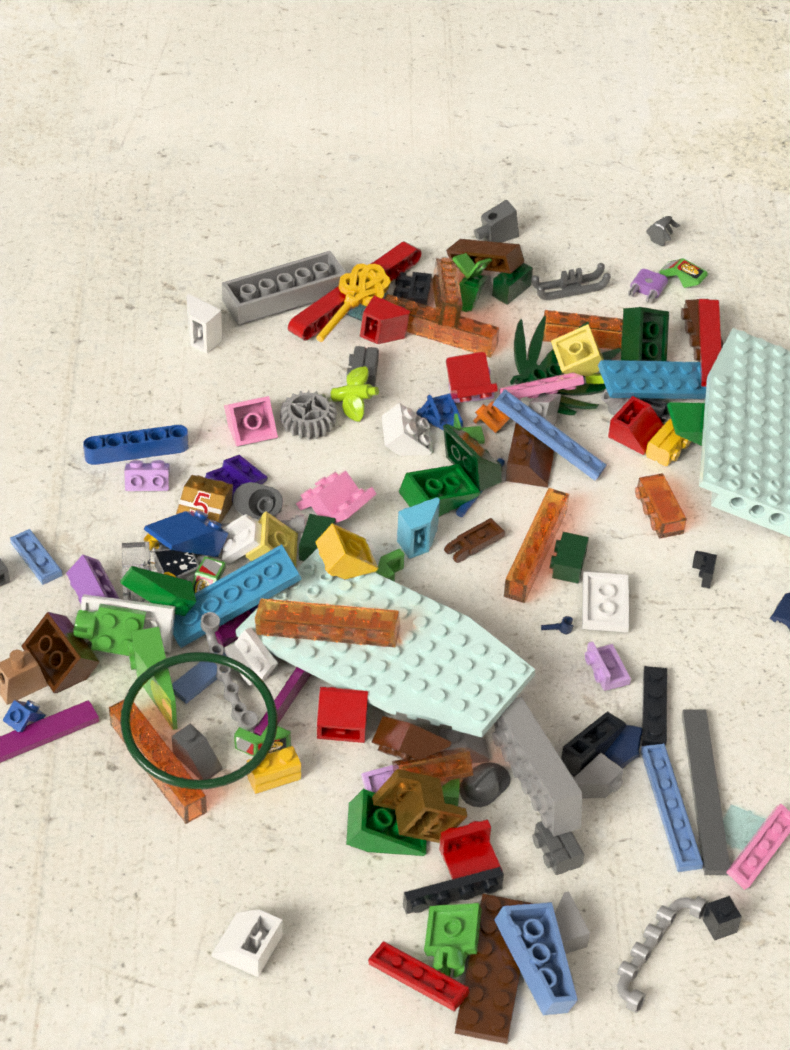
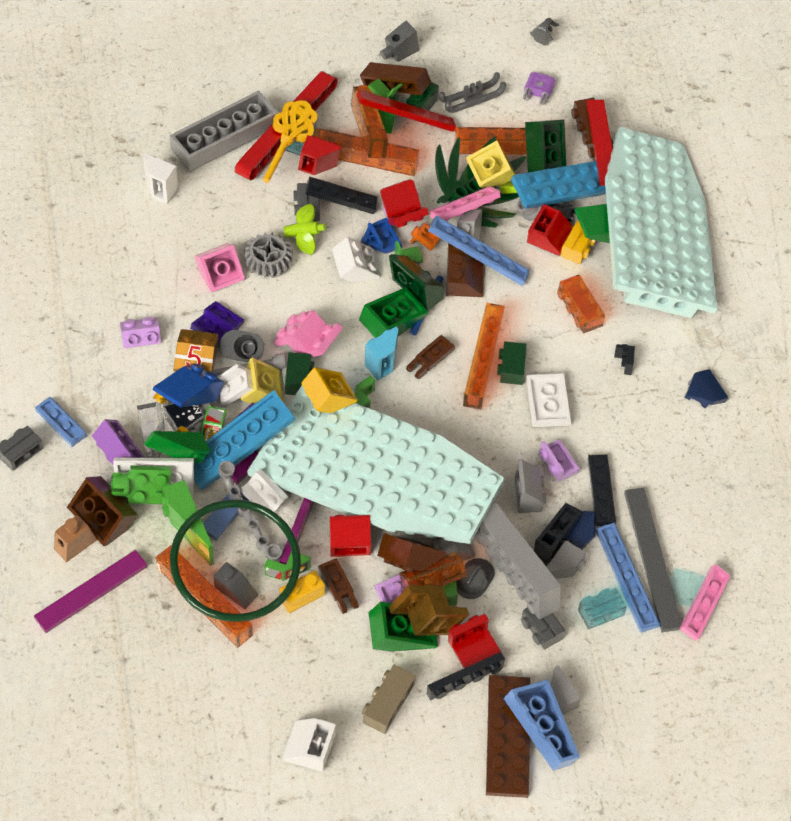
camera: 10 degrees left, 10 degrees up
(21, 713) = (83, 570): blue bracket -> none
(135, 444) = (114, 305): blue beam -> none
(319, 768) = (338, 584): none -> reddish brown hinge
(327, 622) = (325, 458): clear orange brick -> none
(354, 903) = (388, 698): none -> dark tan brick
(402, 364) = (341, 195): none -> black plate
(419, 287) = (341, 115): black plate -> none
(419, 976) = (450, 753): red tile -> none
(452, 936) = (471, 716): bright green plate -> none
(490, 286) = (405, 110): none -> red tile
(565, 626) = (516, 427): dark blue hand -> none
(566, 691) = (529, 488): none -> light grey slope
(634, 836) = (602, 608): none -> clear light blue brick
(653, 936) = (622, 706): light grey bar -> none
(686, 271) = (570, 70): bright green slope -> none
(722, 918) = (681, 669): black brick -> none

